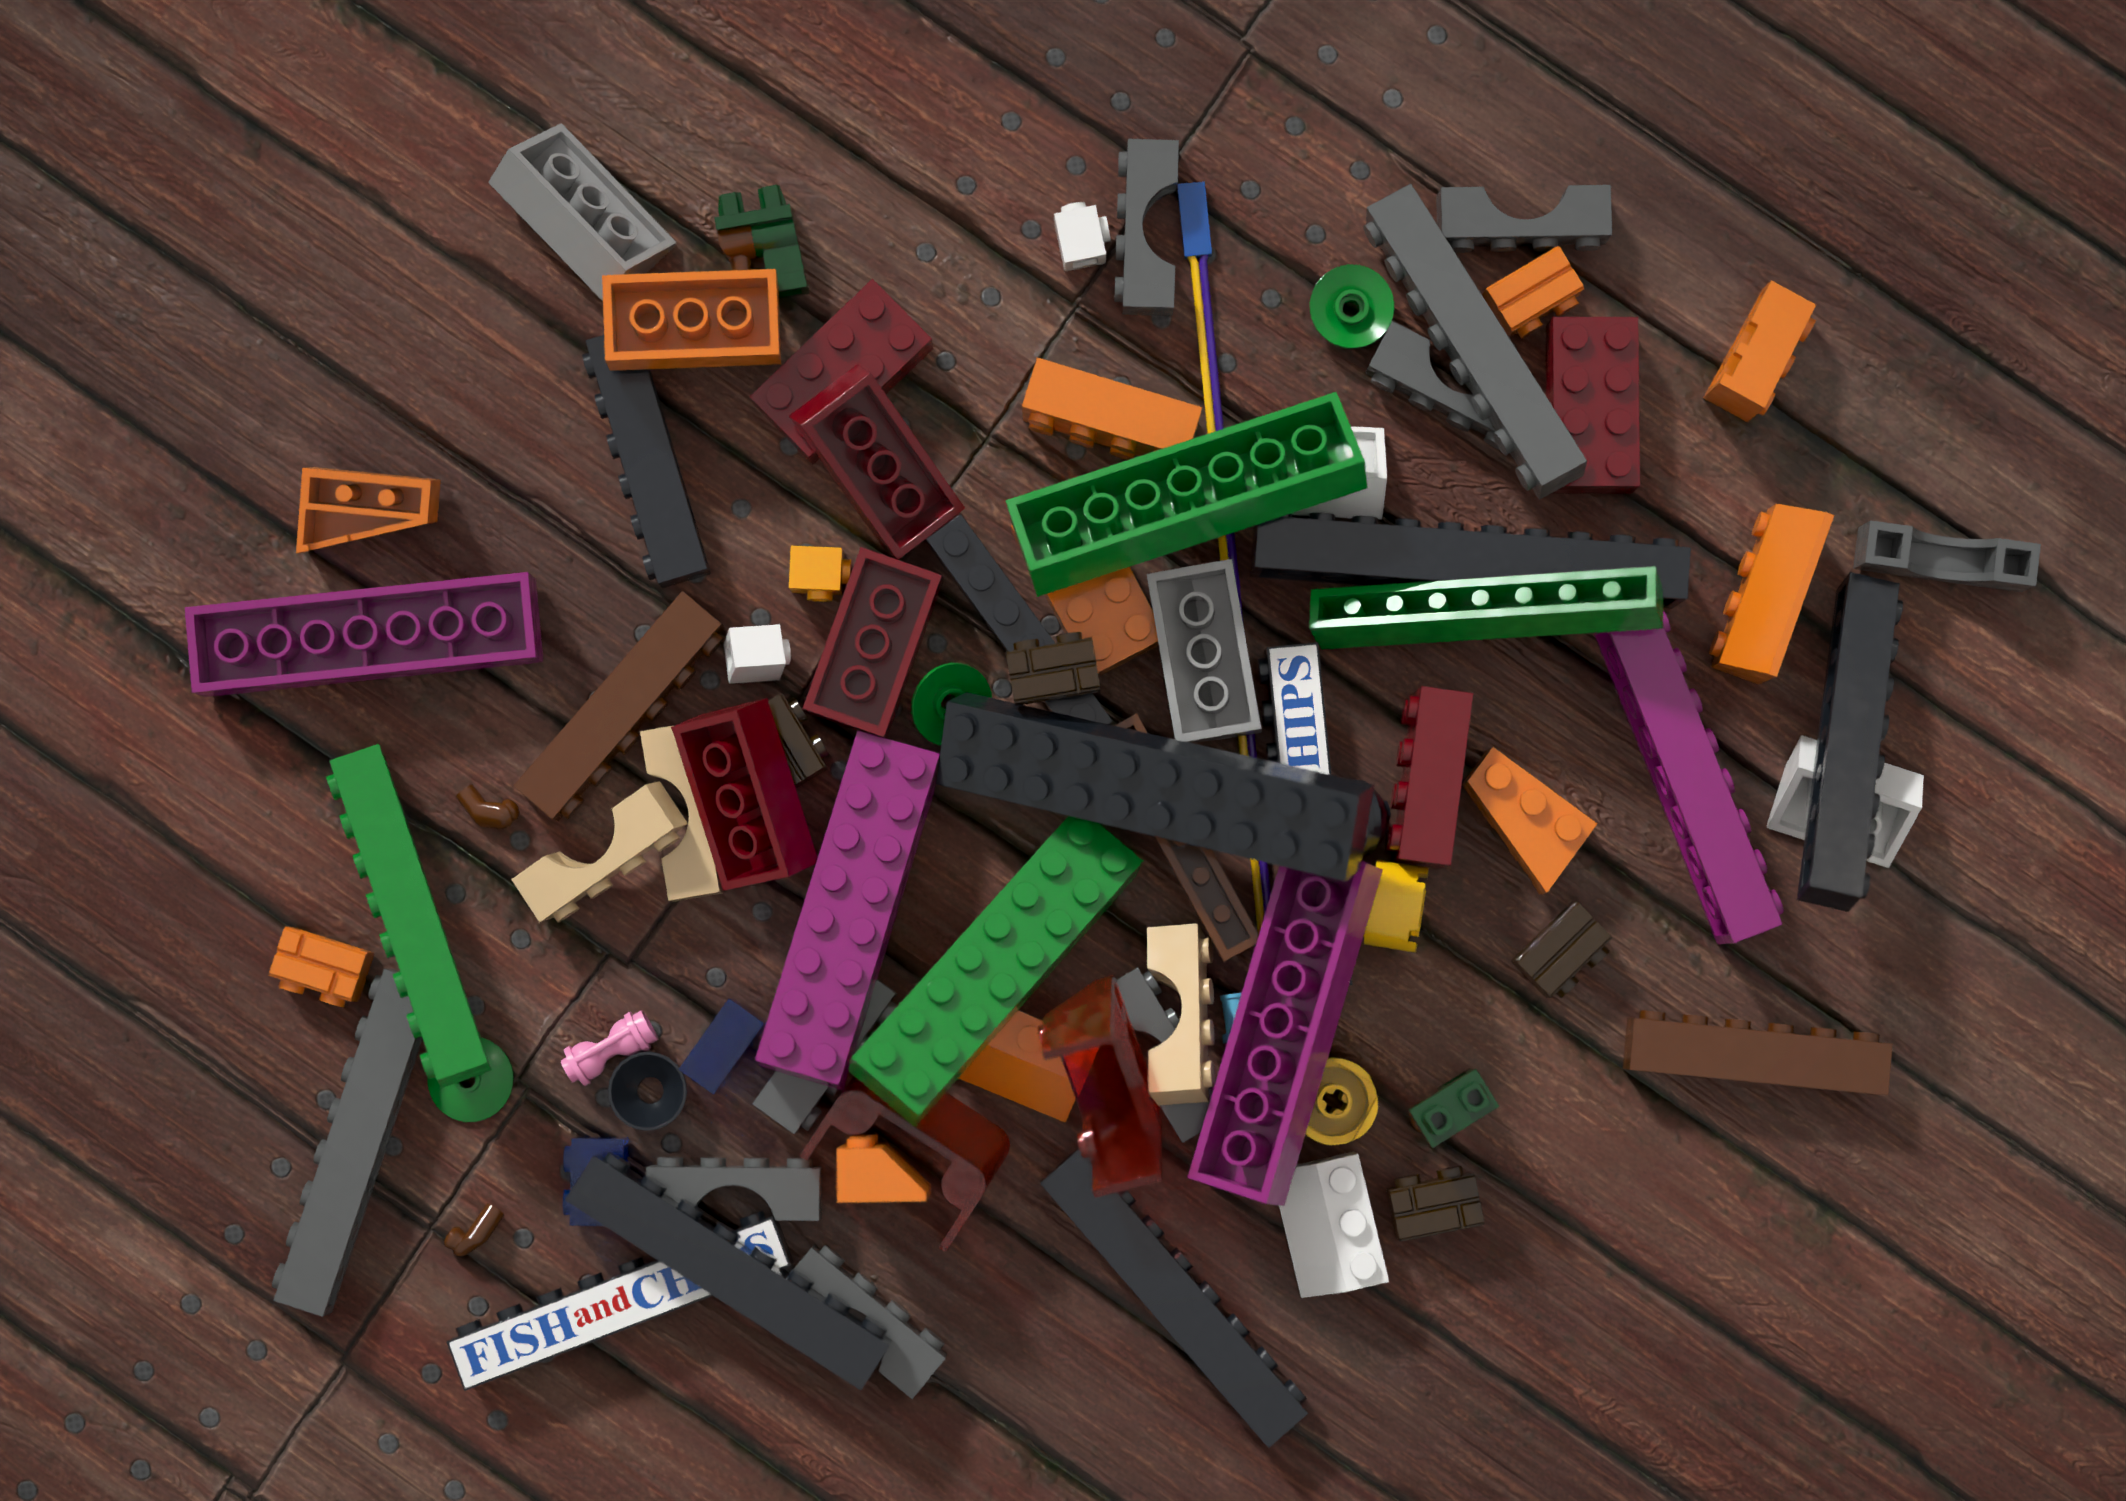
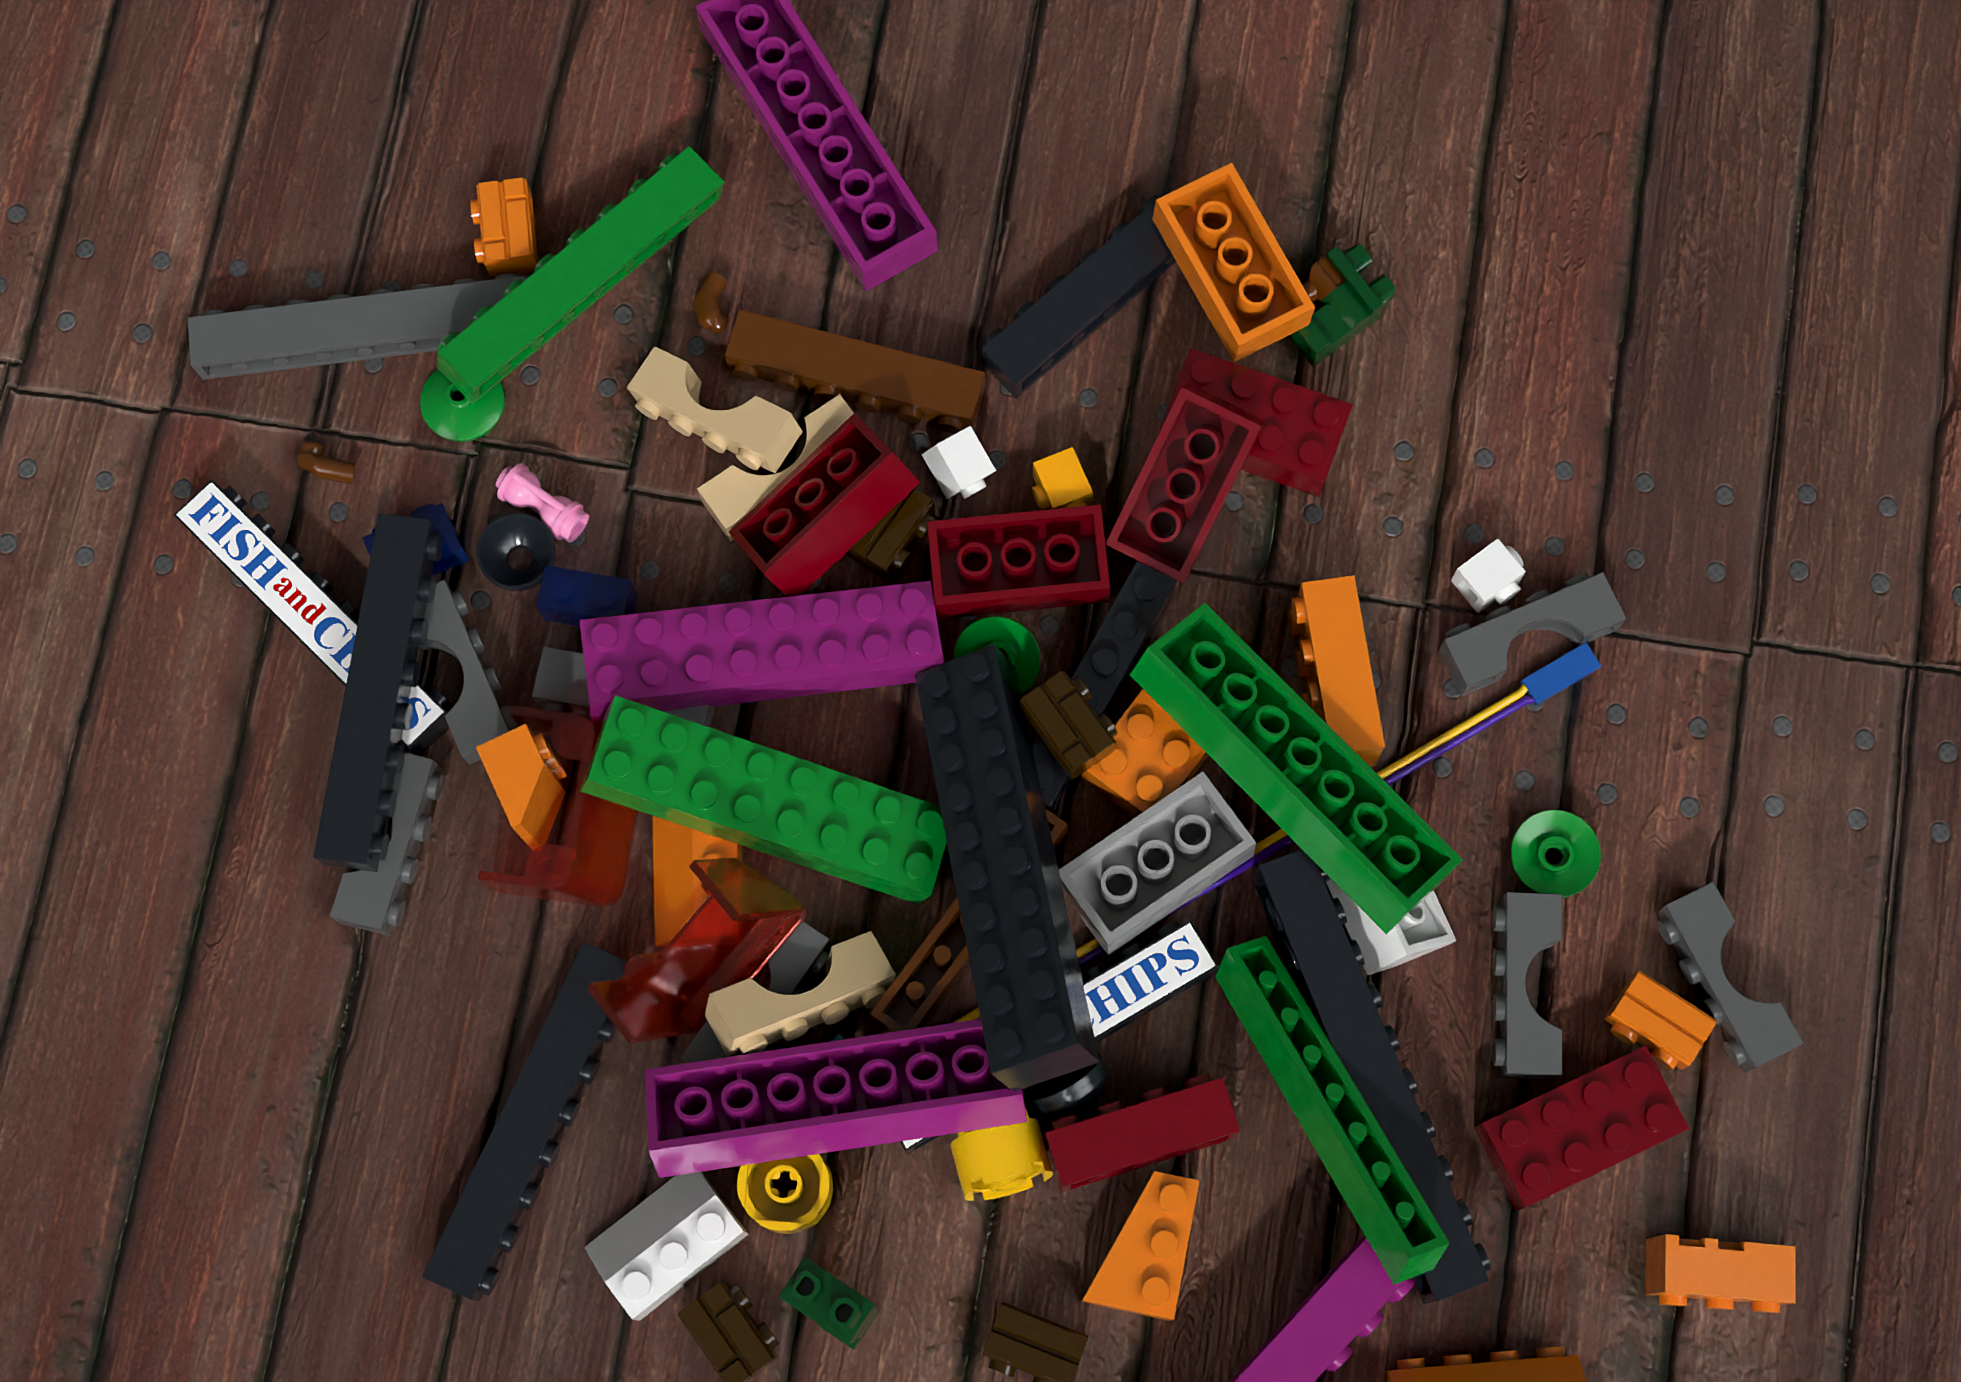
camera: 70 degrees right, 10 degrees down
(361, 505) = (927, 72): orange wedge -> none
(579, 208) = (1289, 132): light grey slope -> none
(1474, 342) = (1579, 983): dark grey brick -> none

